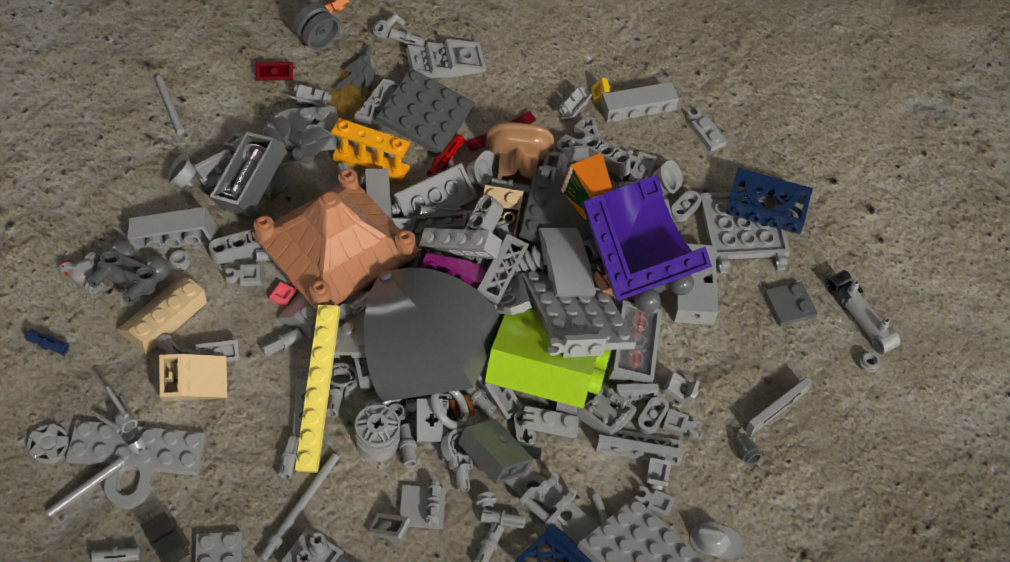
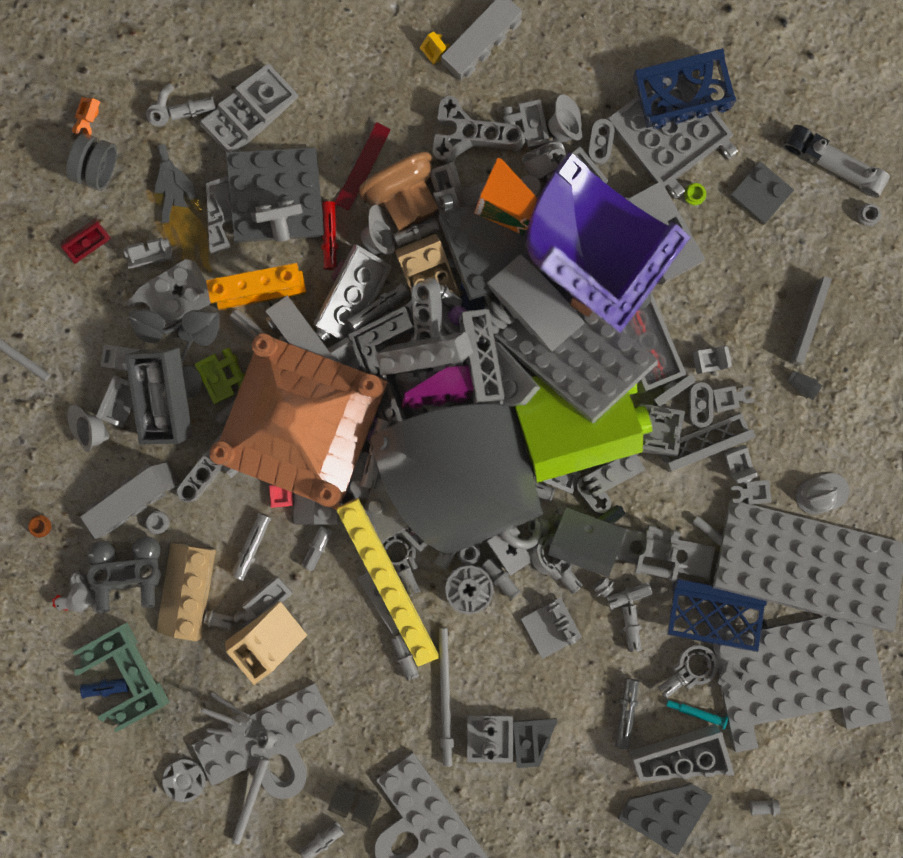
camera: 25 degrees left, 30 degrees up
(72, 367) = (121, 646): none -> sand green wedge
(95, 213) = (39, 526): none -> dark orange plate
(234, 312) = (250, 547): none -> light grey pin
(247, 275) = (234, 499): light grey plate -> none
(297, 190) = (214, 377): none -> lime plate
(389, 527) = (538, 670): light grey slope -> none
(418, 111) = (277, 217): none -> light grey plate
(570, 108) = (419, 88): light grey hinge -> none
(578, 345) = (611, 408): light grey plate -> none
(706, 130) = (568, 27): light grey plate -> none
(737, 275) = (695, 194): none -> lime plate

